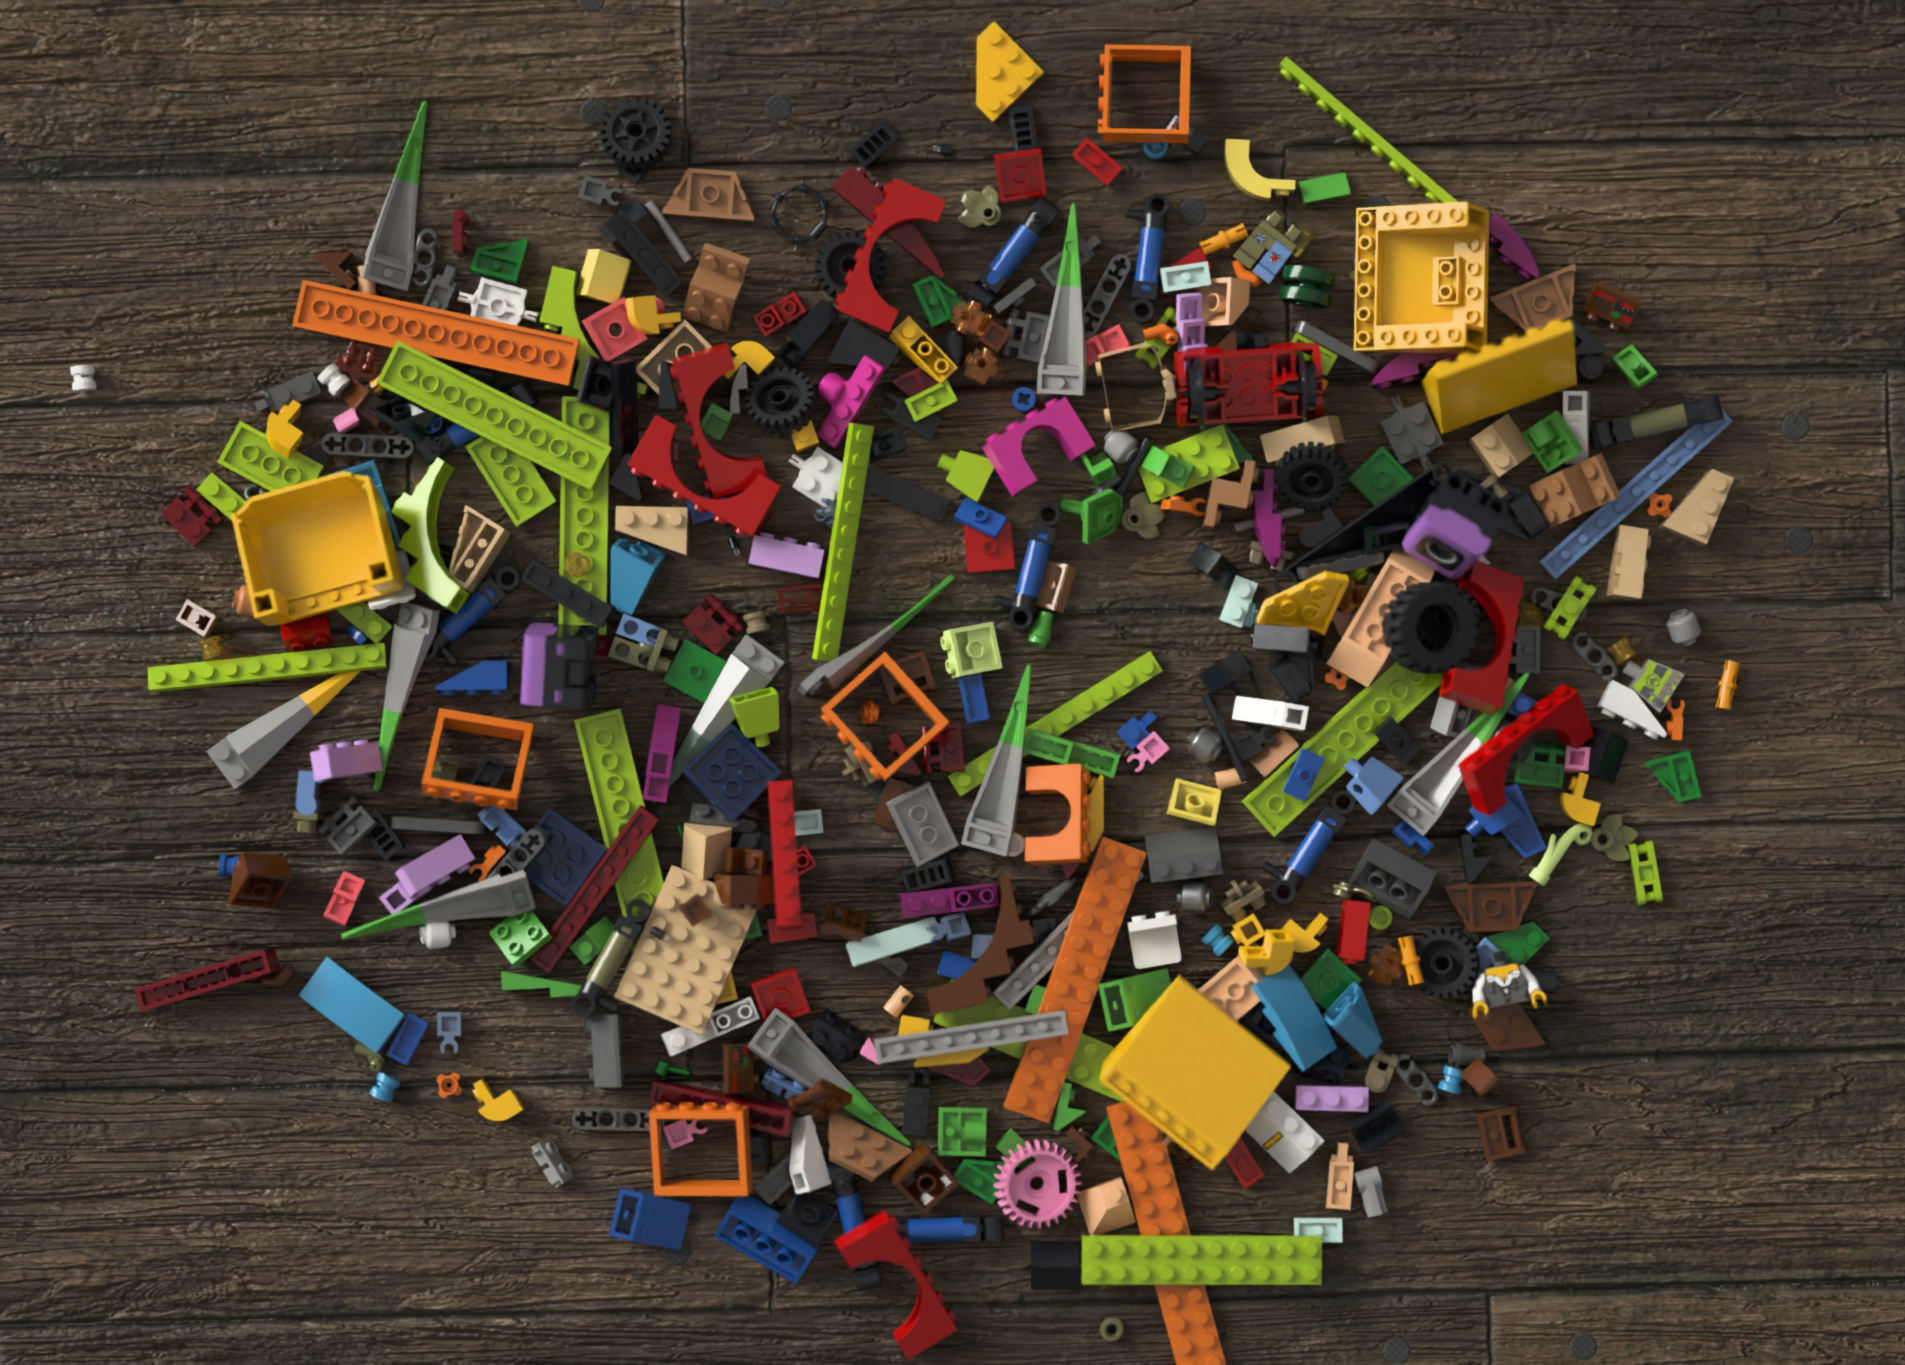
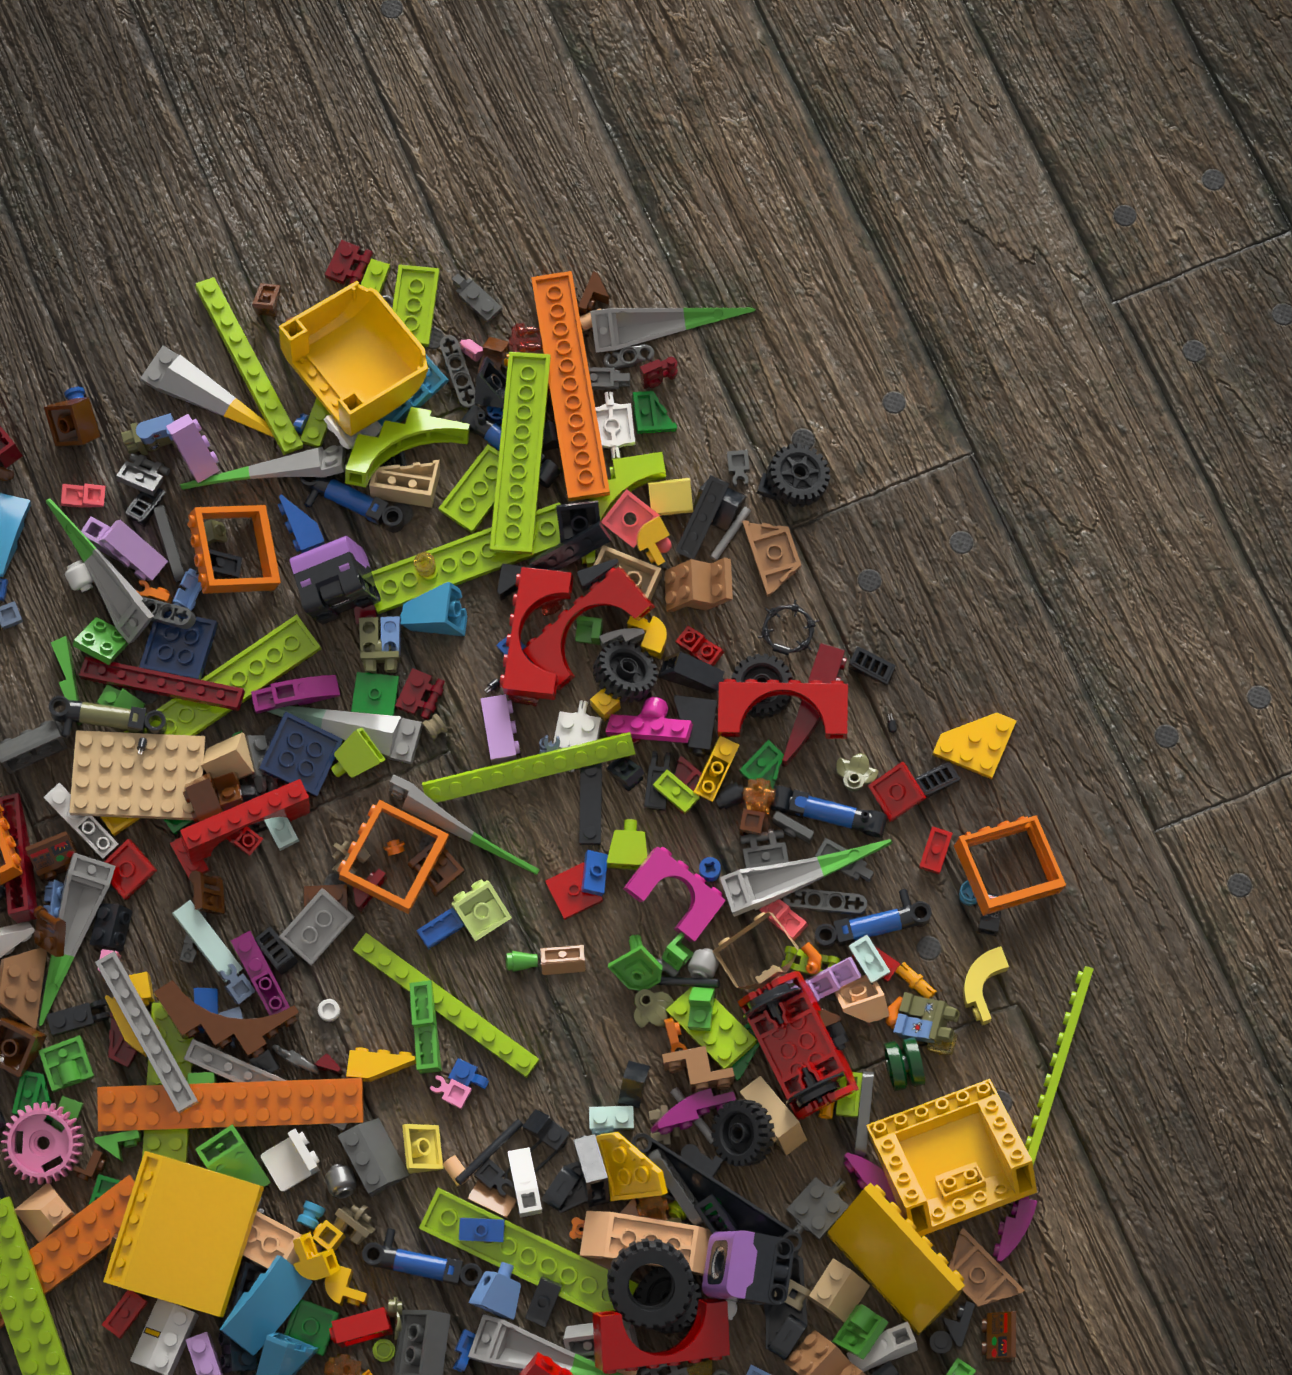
camera: 75 degrees right, 15 degrees down
(83, 378) = (424, 145): white wheel -> none
(211, 648) = (248, 317): clear yellow wheel -> none
(281, 433) = (442, 300): yellow brick -> none
(307, 633) = (288, 384): red bracket -> none
(334, 379) = (501, 325): white wheel -> none
(567, 593) = (398, 567): black plate -> none
(656, 525) = (482, 616): tan wedge -> none
(663, 1067) = (34, 798): green hand -> none
(695, 910) = (171, 764): reddish brown panel -> none
(814, 586) = (482, 761): clear red piece -> none
(898, 1001) = (159, 967): light nougat piece -> none
(950, 750) = (386, 925): dark red plate -> none
(977, 374) = (720, 815): clear orange brick -> none
(995, 807) = (351, 980): light grey plate -> none
(1032, 569) = (570, 933): piece -> none
(1072, 842) = (346, 1052): orange arch -> none
(1204, 745) = (475, 1136): flat silver head -> none
(1324, 188) = (996, 1049): bright green slope -> none
(1379, 477) = (769, 1193): green plate -> none

